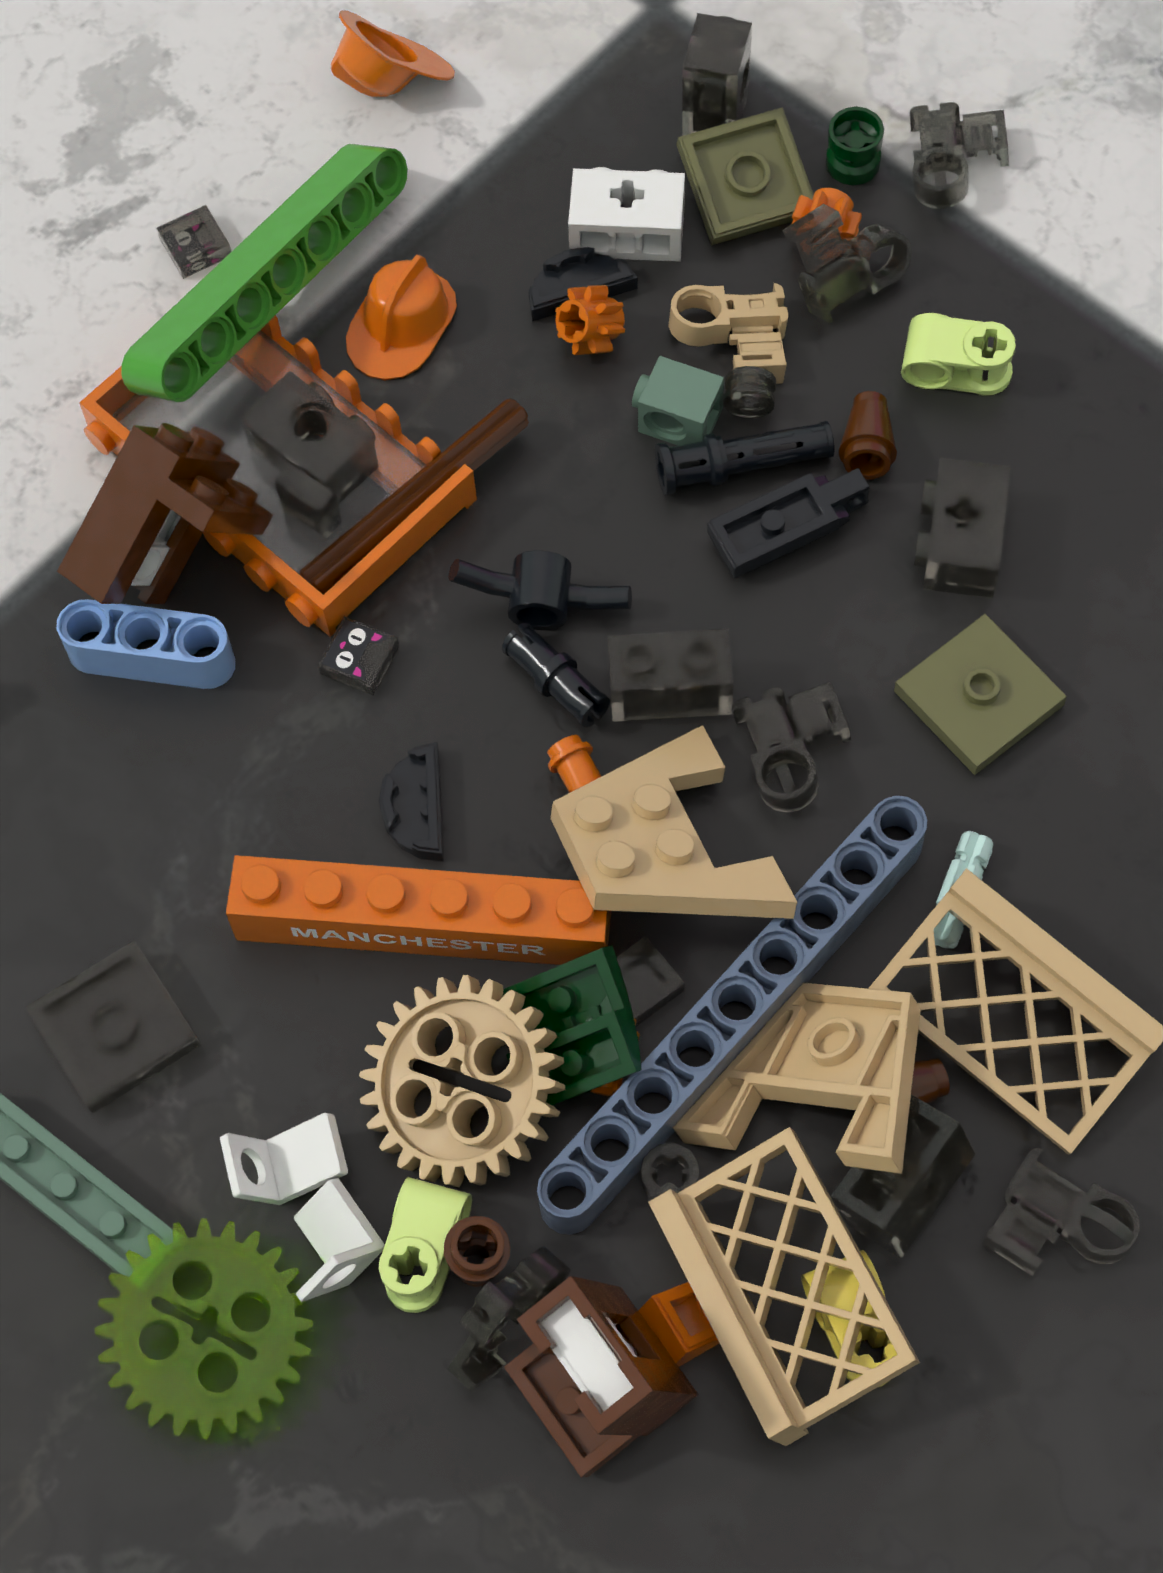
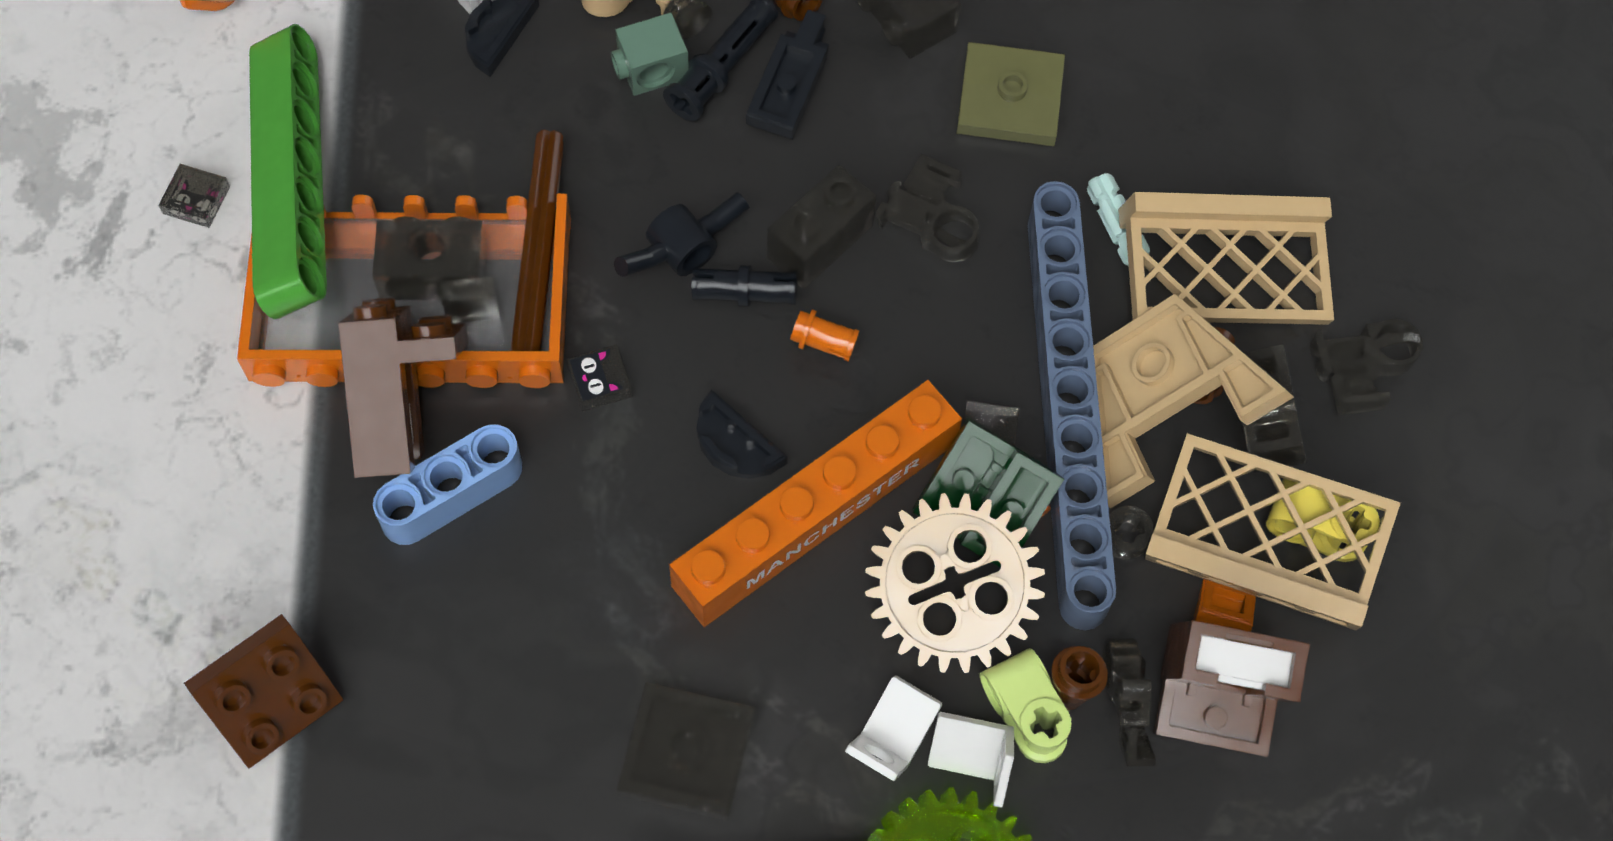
camera: 50 degrees left, 0 degrees up
(400, 319) = (400, 141): orange piece -> none
(590, 320) = (532, 54): orange gear -> none
(642, 851) = (928, 343): tan wing -> none

